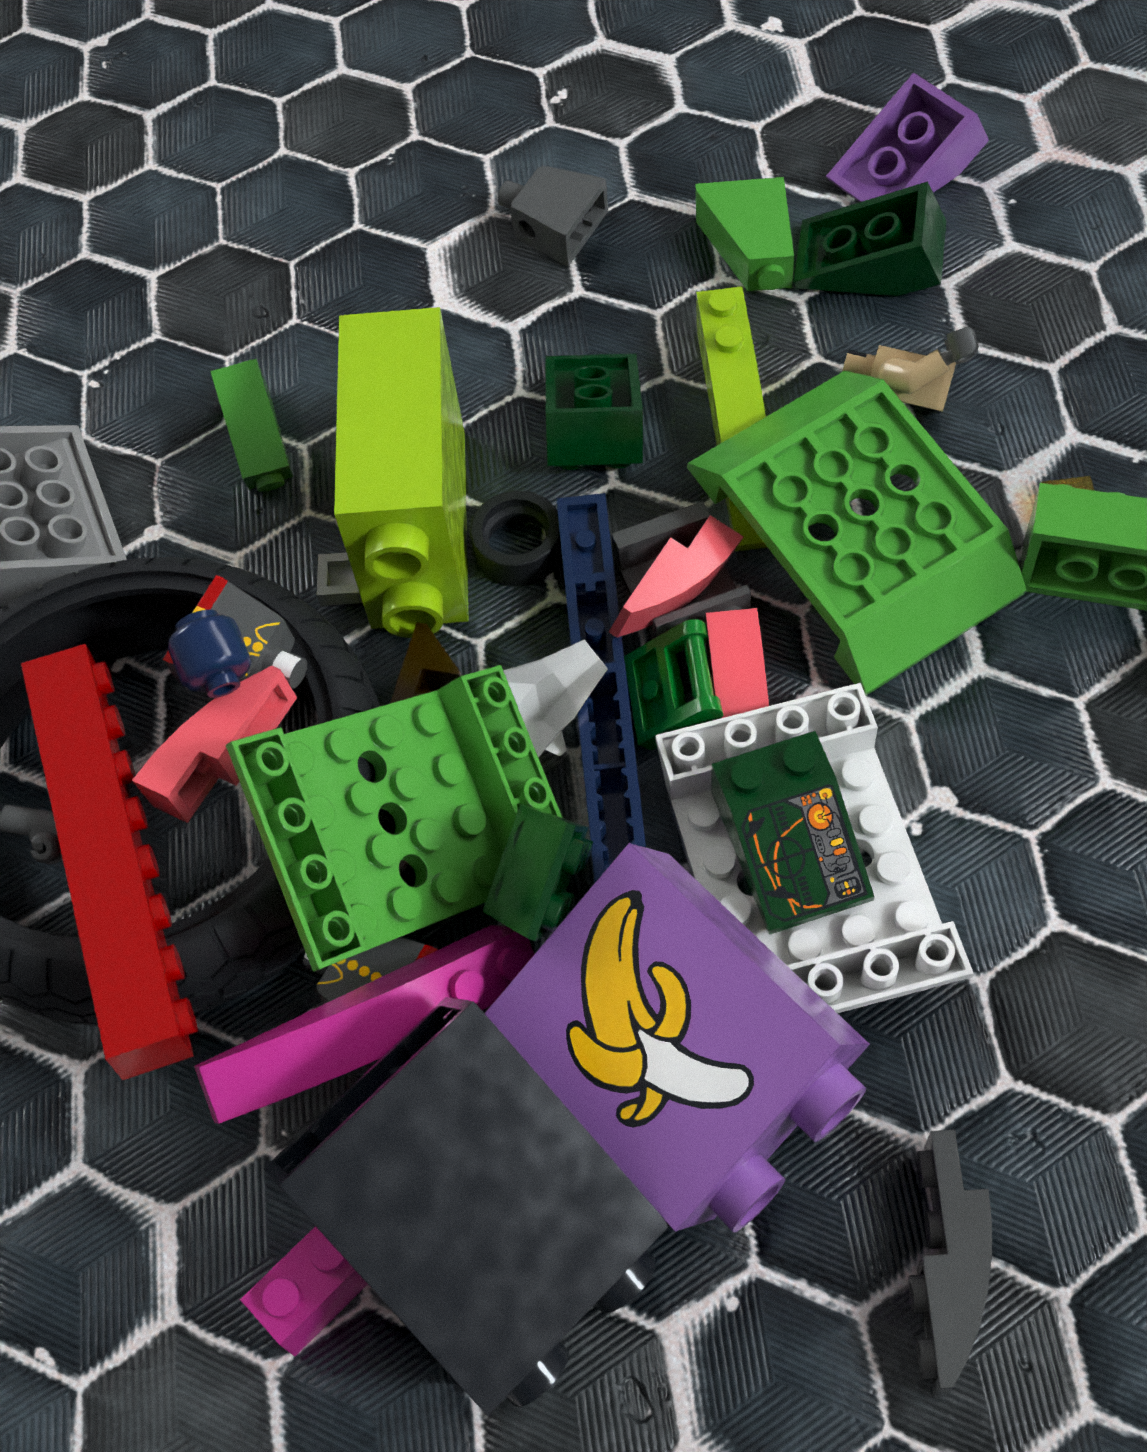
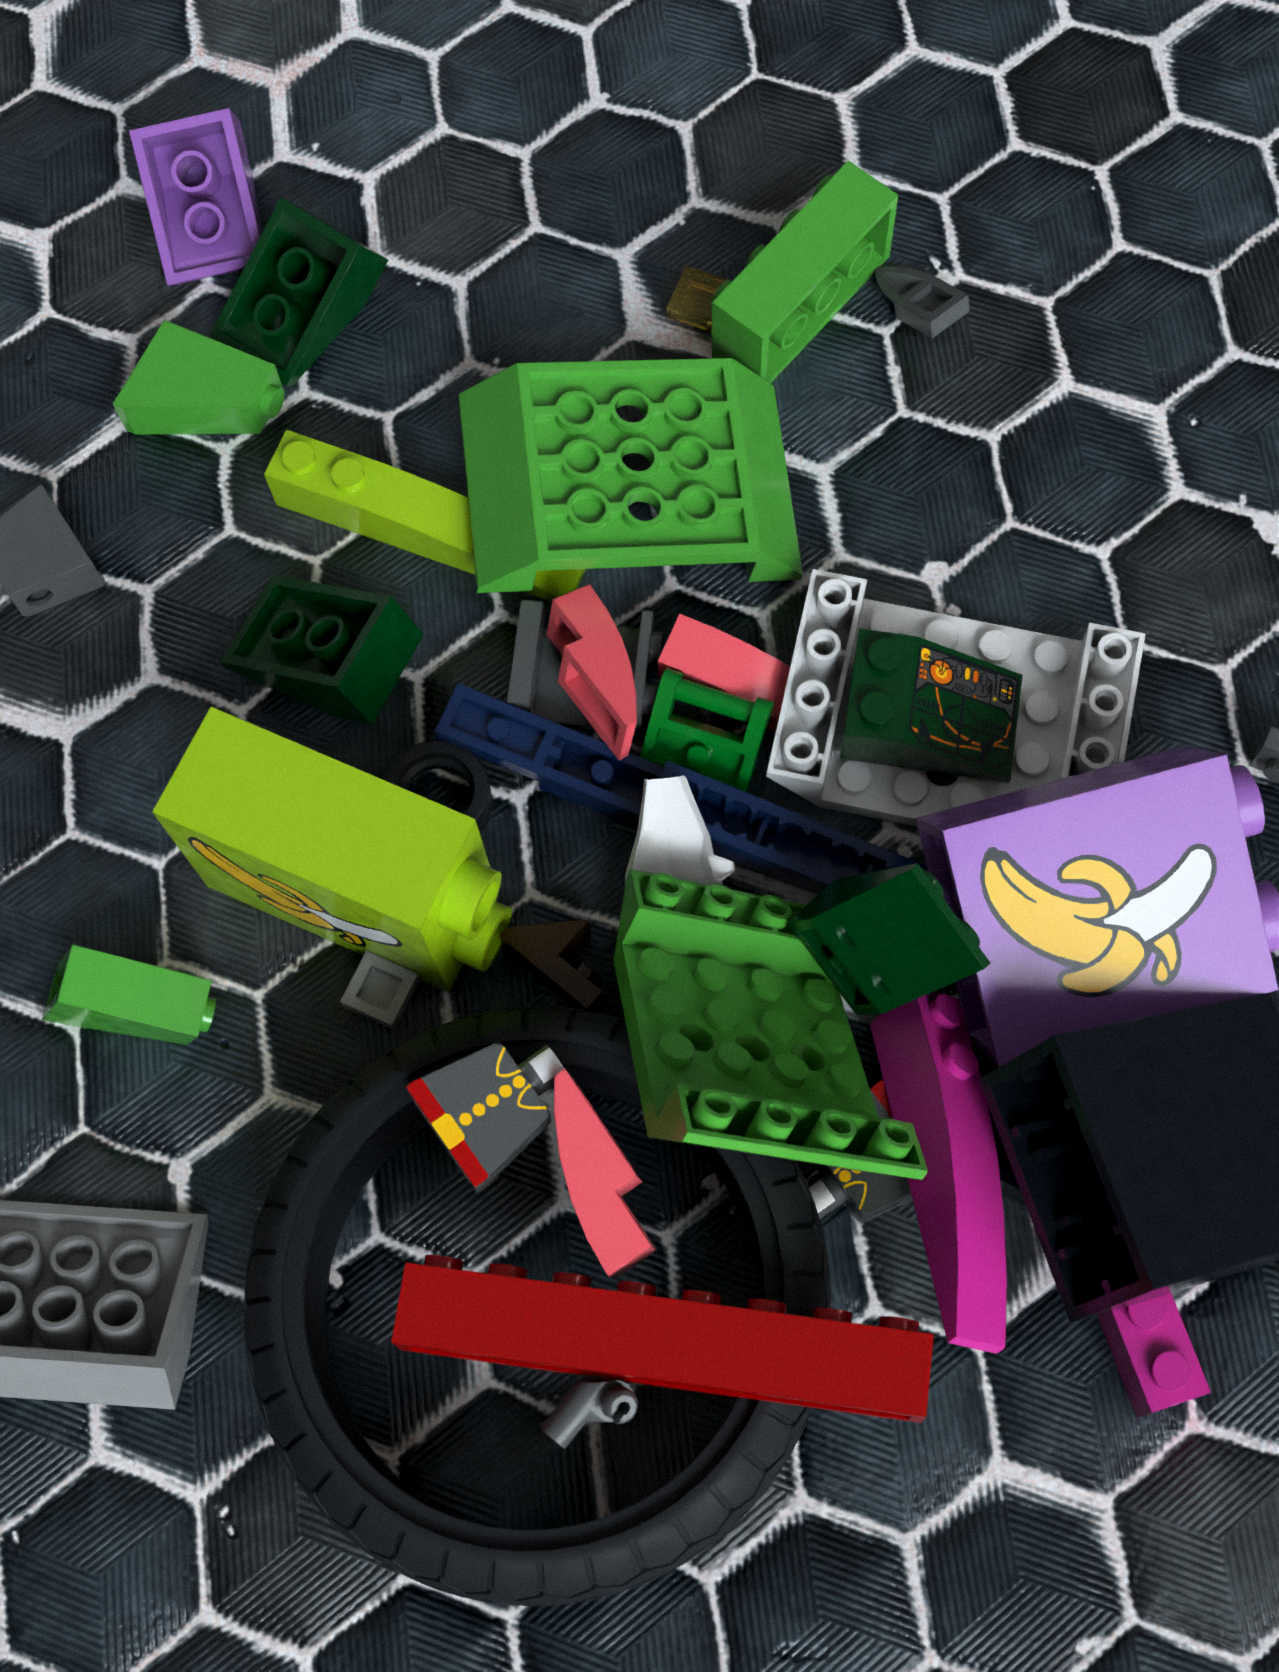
camera: 65 degrees left, 10 degrees up
(209, 653) = (519, 1127): dark blue head -> none
(917, 377) = (503, 333): tan torso -> none

